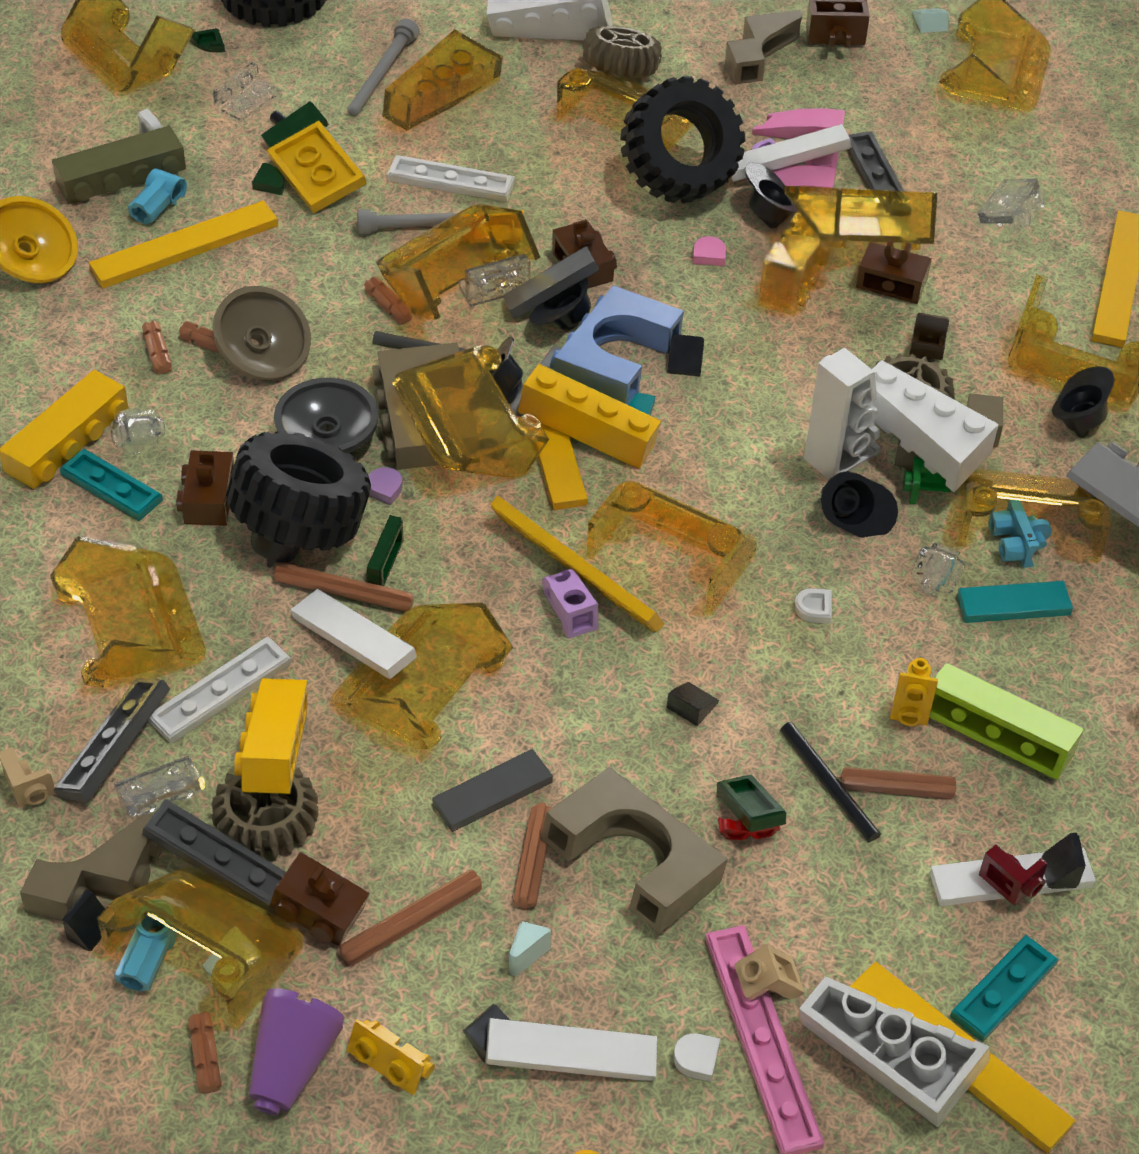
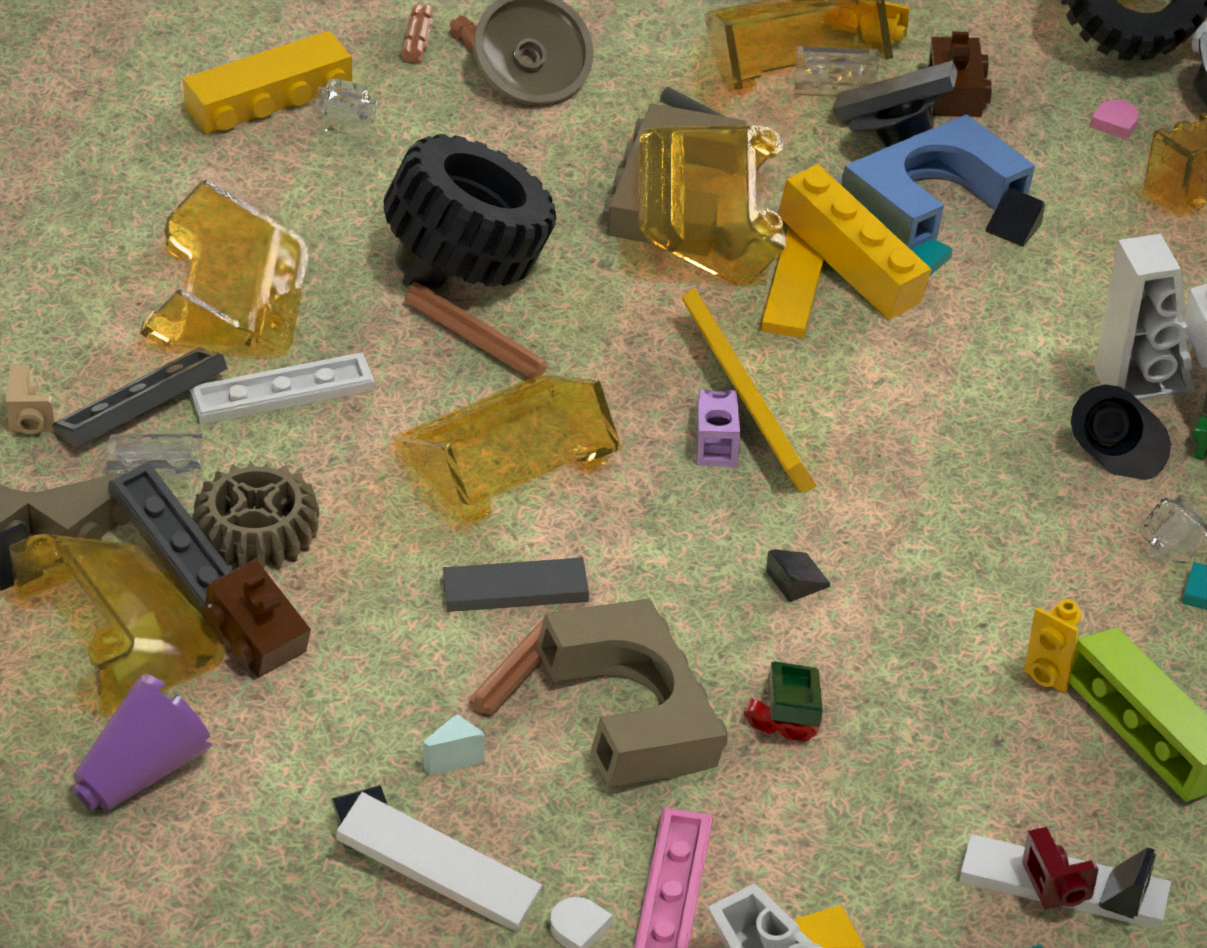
camera: 25 degrees right, 5 degrees down
(111, 484) = (288, 154): teal tile -> none
(144, 955) = (49, 608): medium azure piece -> none
(204, 1052) = (56, 724): nougat axle -> none
(205, 488) = (366, 189): reddish brown brick -> none
(272, 736) = (299, 441): yellow brick -> none
(328, 410) = (559, 148): dark grey dish -> none
(354, 633) = (453, 377): white tile -> none
(379, 1050) = (242, 796): yellow hinge -> none
(385, 484) = (582, 244): lavender tile -> none
(385, 551) = (539, 309): dark green tile -> none
(388, 300) = (703, 60): nougat axle -> none
(410, 917) = (349, 676): nougat axle -> none
(509, 373) = (774, 171): black piece -> none
(682, 521) = (936, 426): clear yellow windscreen -> none
(766, 971) = (708, 865): tan bracket -> none
(814, 605) = (1006, 524): white tile -> none
(830, 782) = (908, 710): black bar -> none
(898, 783) = (988, 738): nougat axle -> none

